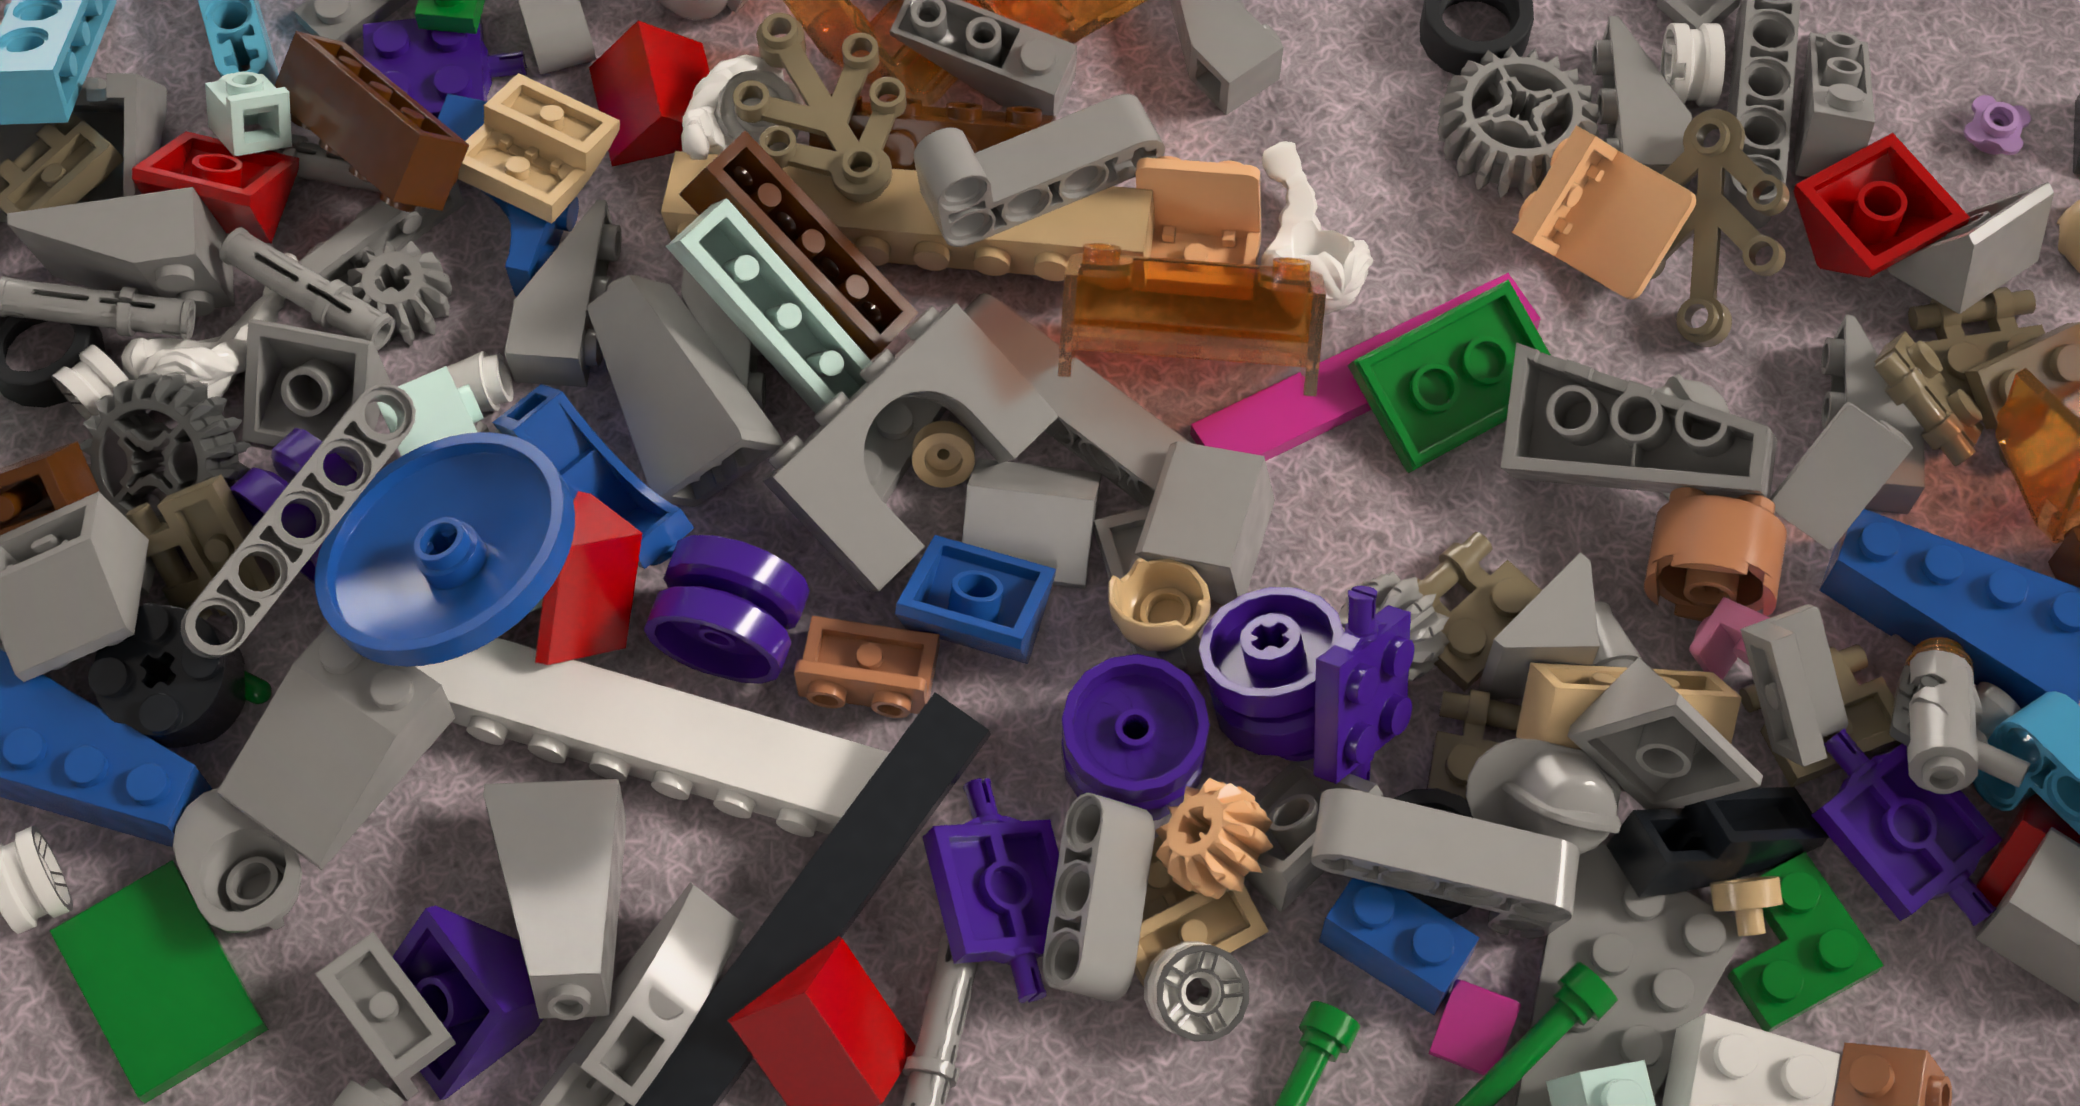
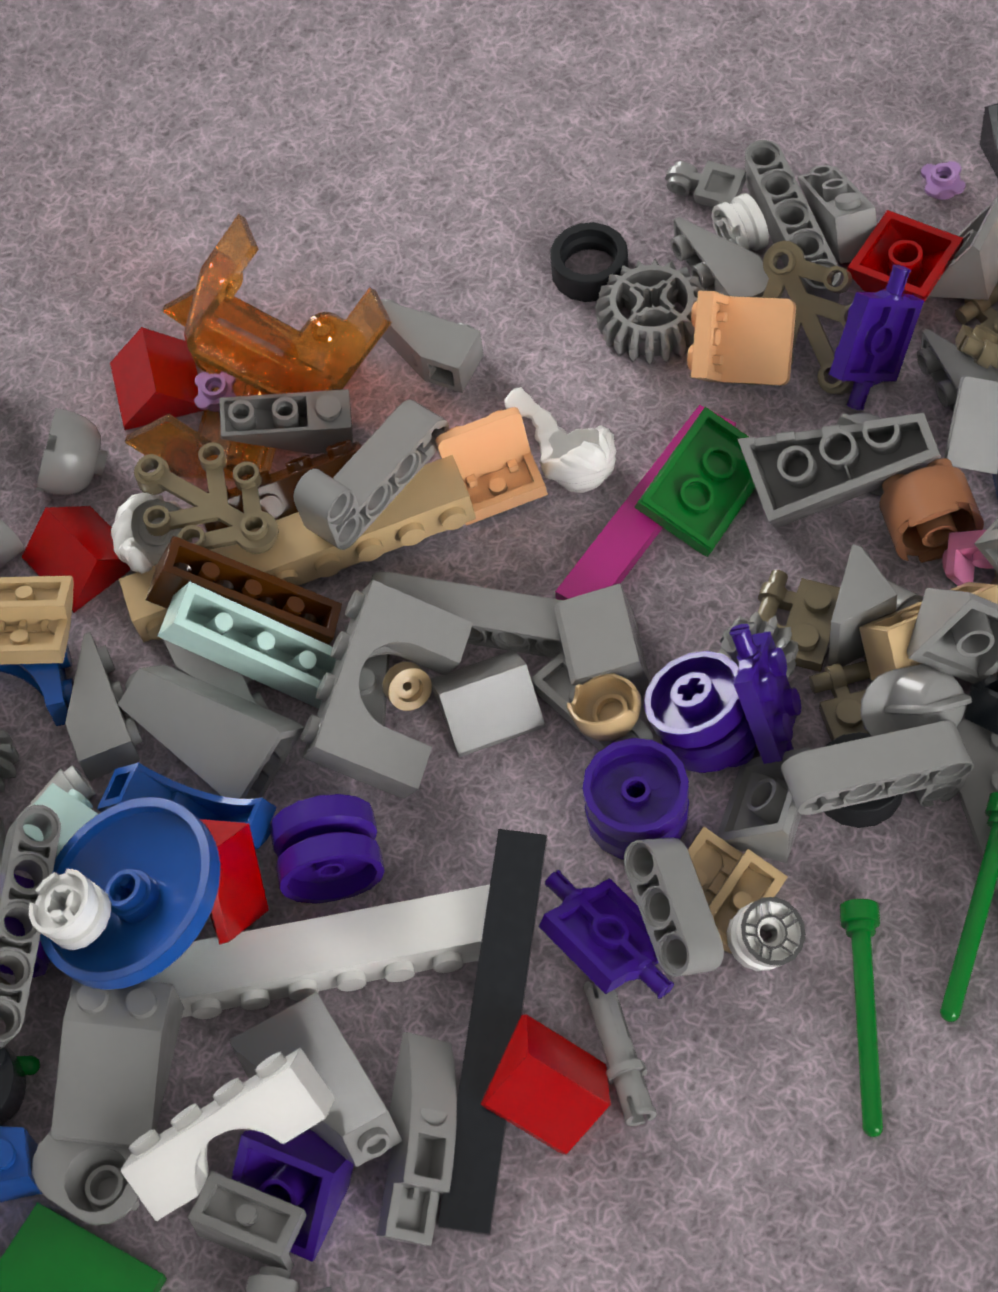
camera: 20 degrees left, 5 degrees down
(363, 535) = (70, 909): none -> white wheel
(473, 894) = (279, 1101): none -> white arch
(867, 666) = (436, 842): nougat bracket -> none
(977, 598) = (483, 765): blue slope -> none
(1193, 310) = (527, 515): clear orange windscreen -> none
(1214, 838) = (725, 832): light nougat gear -> none
(1398, 941) = (873, 839): blue brick -> none
(1474, 1027) = (948, 869): dark pink slope -> none
(1777, 294) = (876, 337): none -> dark purple plate

